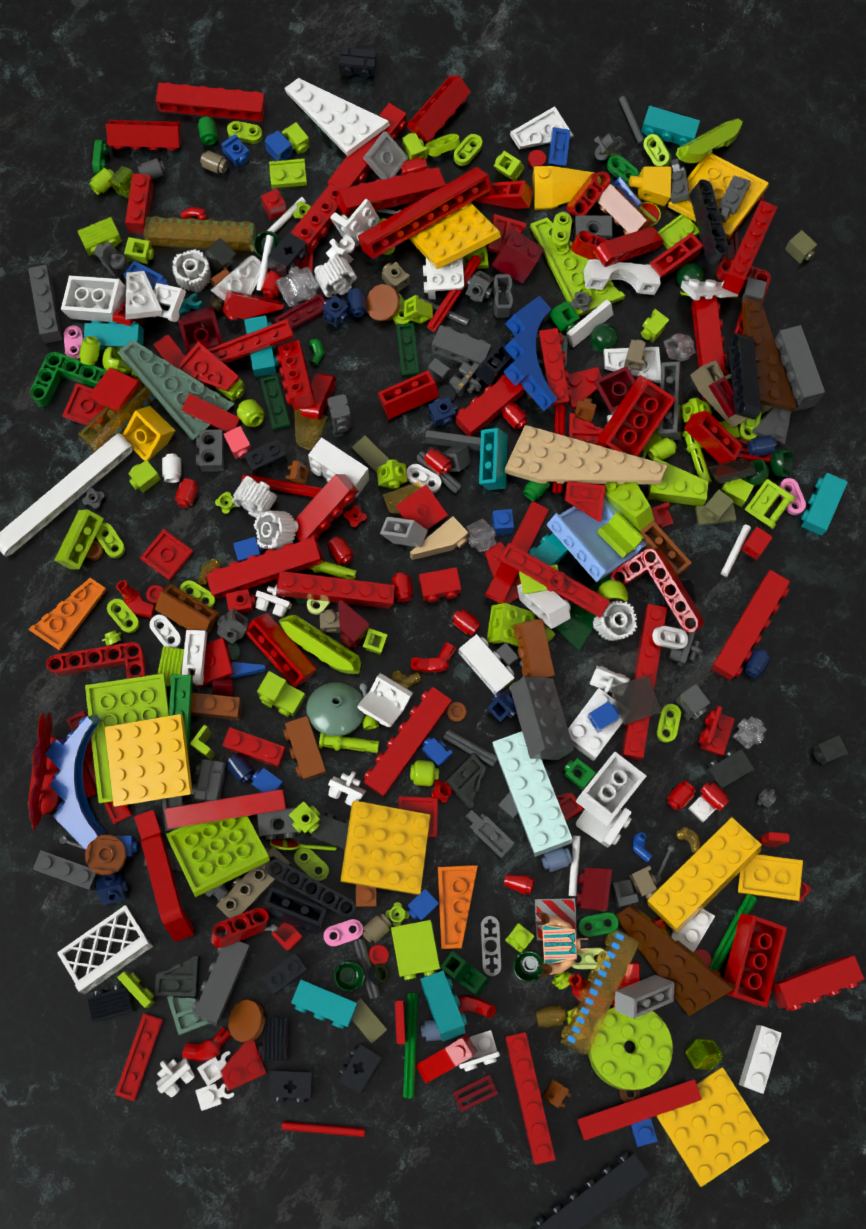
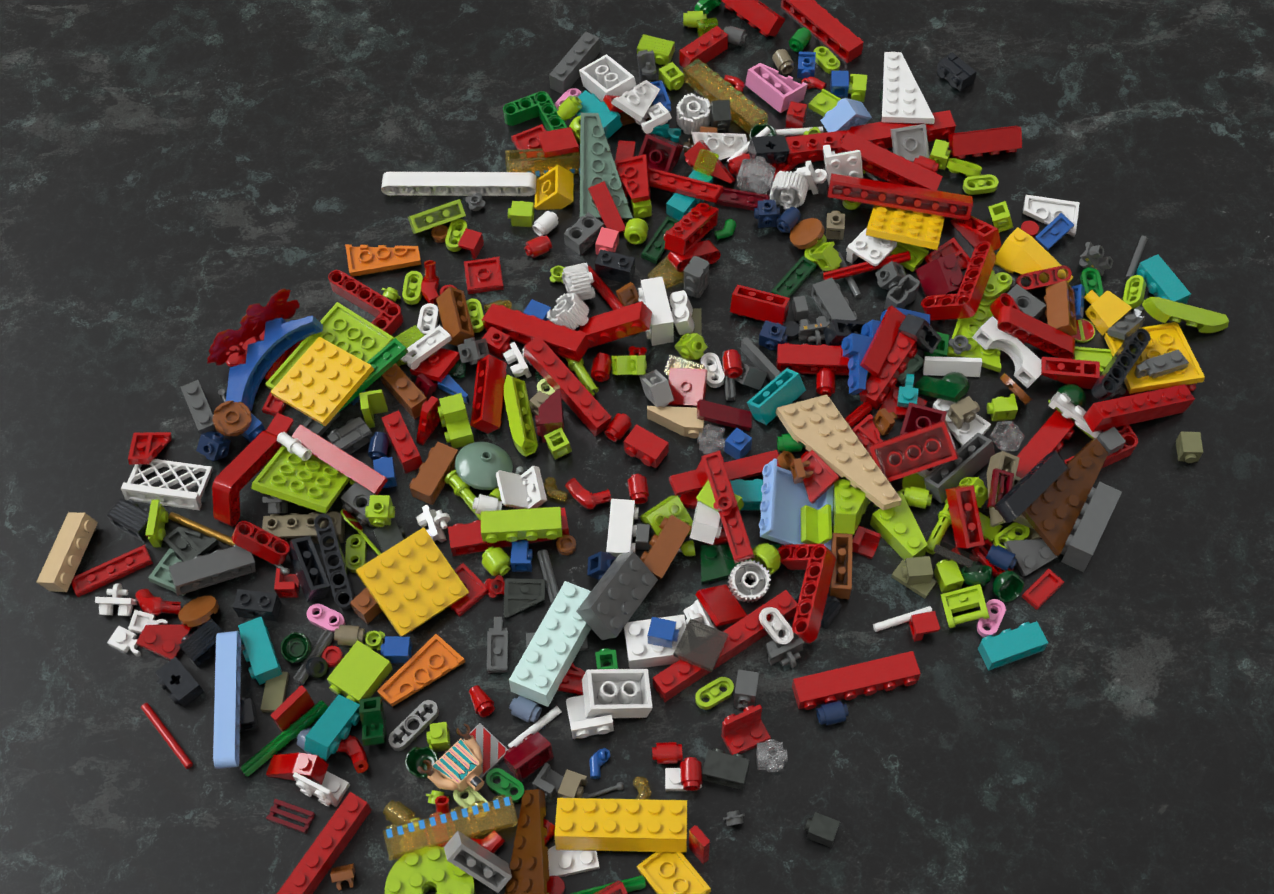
camera: 50 degrees right, 15 degrees down
(56, 939) = (147, 446): none -> red wing
(91, 1078) = (67, 552): none -> tan brick
(129, 536) = (471, 241): none -> red panel
(174, 958) = (201, 528): none -> pearl gold bar
(180, 830) = (294, 446): none -> white pin
(232, 193) = (774, 87): none -> bright pink wedge
(252, 308) = (706, 162): none -> clear neon green panel
(254, 162) = (814, 83): none -> red arm
(255, 709) = (428, 419): none -> red wing
(317, 170) = (845, 115): none -> light blue brick
(348, 1063) = (227, 700): none -> light blue beam
(356, 450) = (681, 312): none -> white brick
(362, 530) = (629, 365): none -> lime brick
(376, 738) = (486, 503): none -> white brick
(419, 730) = (521, 524): none -> lime brick
(471, 508) = (724, 415): none -> dark red tile
(535, 348) = (882, 340): none -> red tile
(547, 503) = (785, 459): none -> dark orange tile
(548, 246) = (970, 293): none -> red beam
(553, 318) = (921, 331): none -> black brick
(574, 507) = (798, 471): none -> dark orange tile
(583, 375) = (907, 393): none -> teal plate
(602, 350) = (940, 389): none -> dark green tile
(612, 656) = (721, 605): none -> red tile
(651, 304) = (1015, 389): none -> dark orange tile
(803, 443) = (1042, 589): none -> red tile

